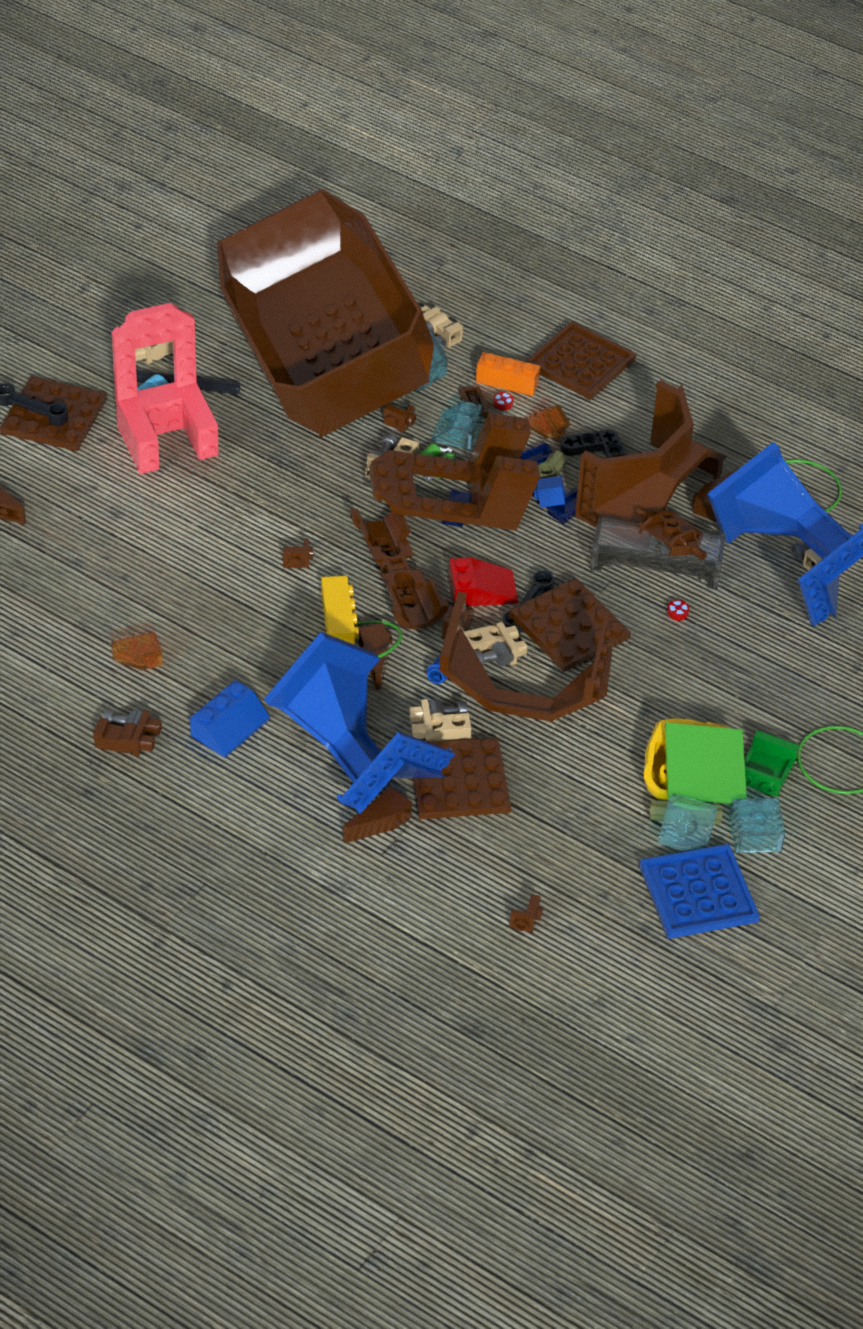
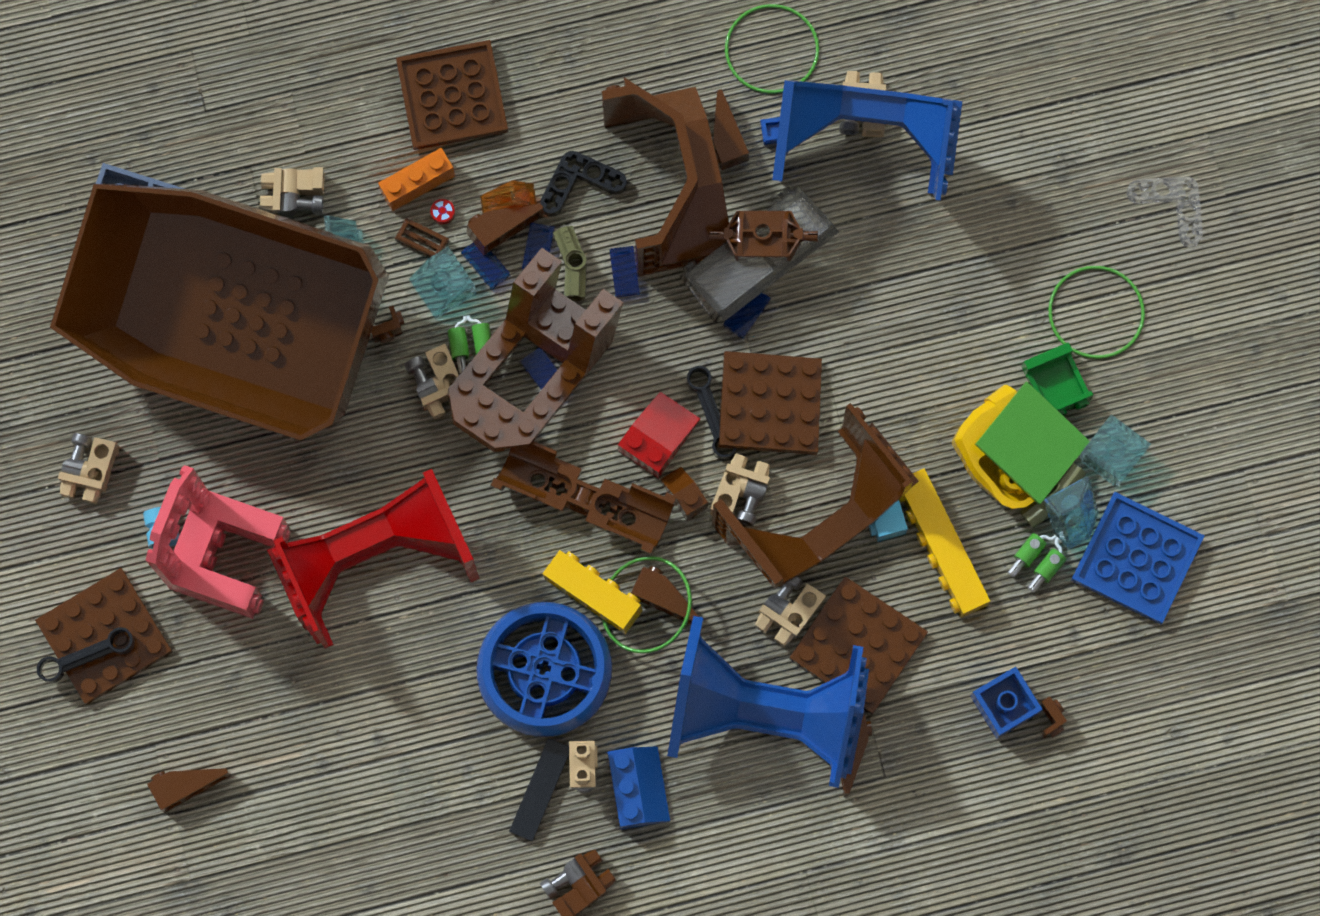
camera: 45 degrees left, 30 degrees up
(138, 651) = (493, 800): clear orange slope -> none
(174, 674) = (540, 790): none -> black tile
(195, 468) = (413, 520): none -> red panel
(203, 383) = (160, 484): black axle -> none
(212, 672) = (583, 762): none -> tan hips
(258, 618) = (523, 680): none -> blue wheel
(297, 556) = (490, 571): reddish brown bracket -> none
(433, 672) = (728, 559): blue cone -> none
(508, 877) = (1006, 702): none -> blue brick
(540, 430) = (498, 226): none -> reddish brown slope
(550, 491) = (603, 276): blue brick -> none
(566, 732) = (889, 524): none -> medium azure slope
(580, 775) = (944, 547): none -> yellow brick
(616, 579) = (745, 318): none -> clear blue tile
(633, 836) = (1049, 565): none -> bright green piece
(678, 610) = (826, 292): red tile -> none

